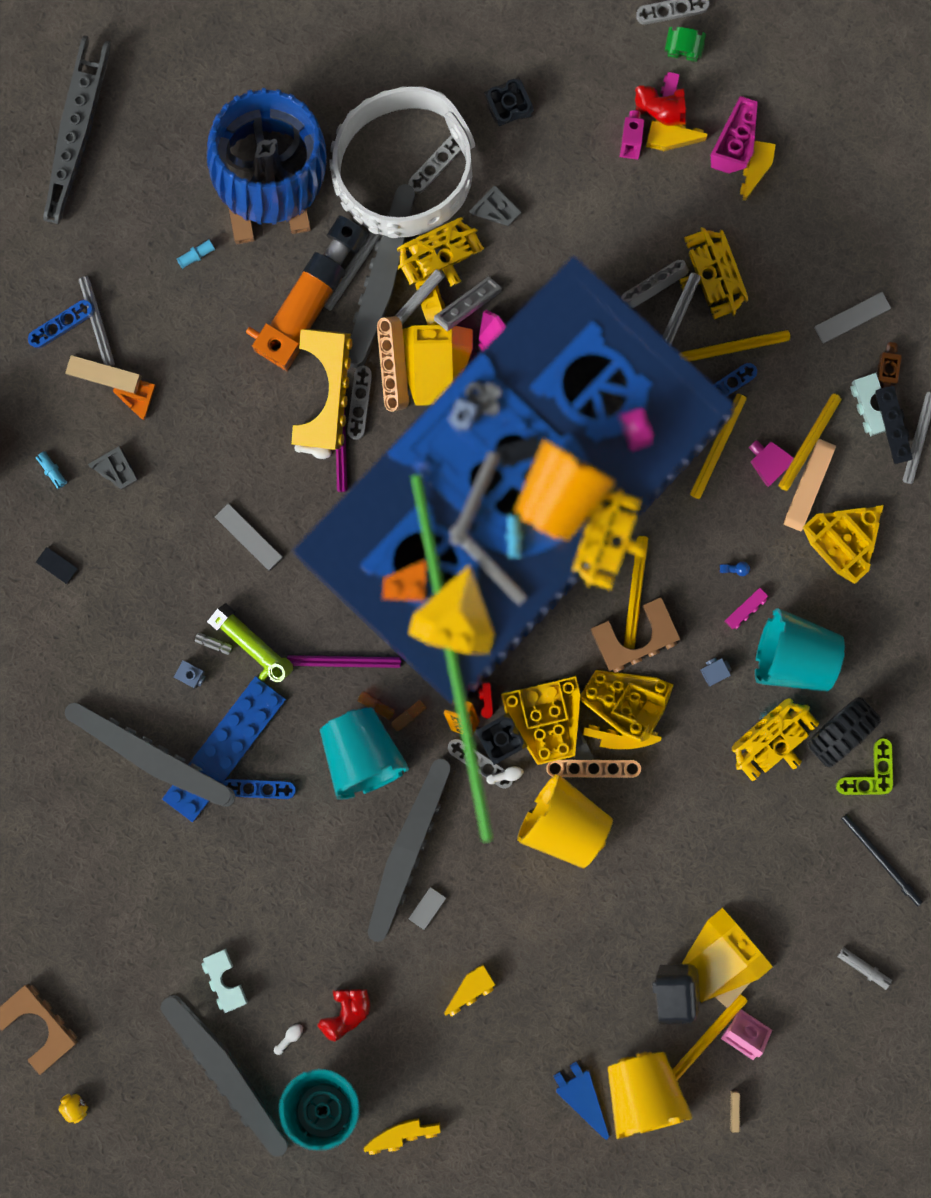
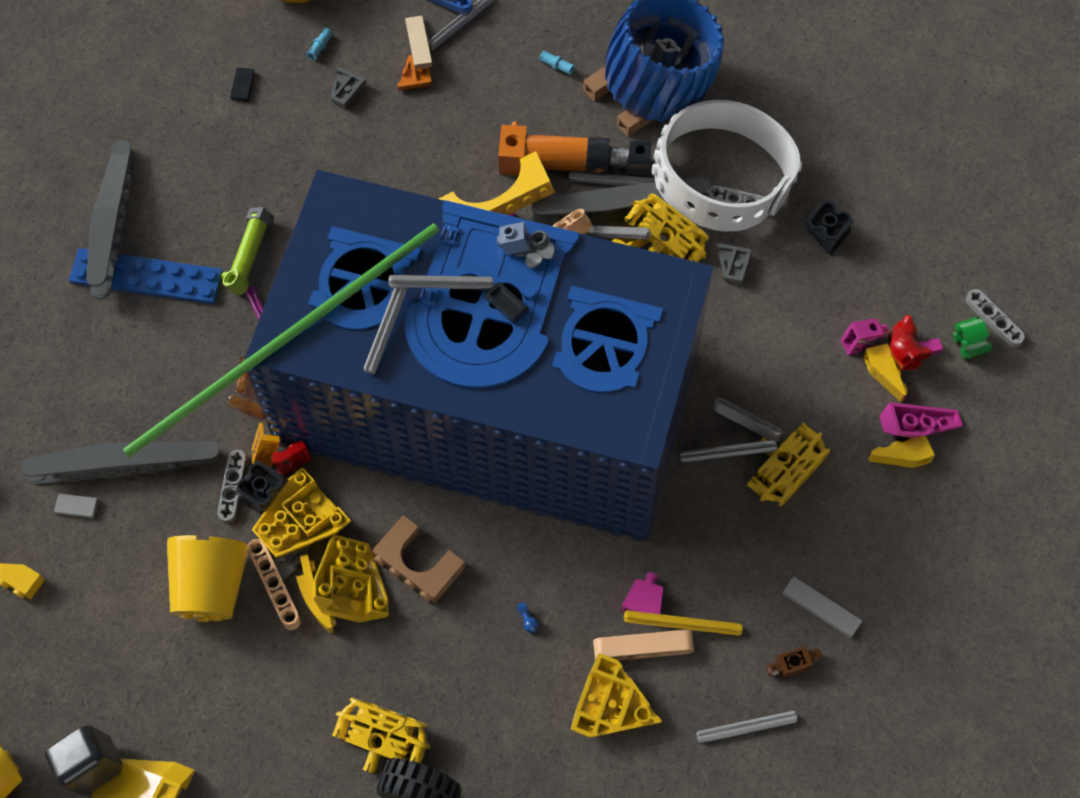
camera: 60 degrees right, 20 degrees down
(190, 674) = (197, 218): sand blue brick -> none
(213, 643) = (234, 224): light grey axle -> none
(258, 788) = (123, 318): blue beam -> none
(360, 753) = (185, 370): teal cone -> none
(406, 584) = (334, 269): orange wing -> none
(455, 618) = (321, 321): yellow wedge -> none
(511, 774) = (233, 514): white piece -> none
(514, 536) = (424, 333): medium azure pin -> none
(561, 492) = (485, 341): light orange cone -> none
(595, 534) = (465, 401): yellow piece -> none
(635, 596) = (458, 542): yellow axle -> none
(636, 428) = (585, 384): dark pink torso -> none
(715, 671) = (420, 648): sand blue brick -> none
(717, 448) = (633, 547): yellow axle -> none
(725, 389) = (692, 522): blue beam -> none
(736, 346) = (729, 512): yellow axle -> none
(742, 612) = (495, 647): dark pink piece -> none
(798, 653) = (474, 709): teal cone -> none
(864, 389) = (762, 651): light aqua arch -> none
(894, 426) = (743, 692): black bracket -> none

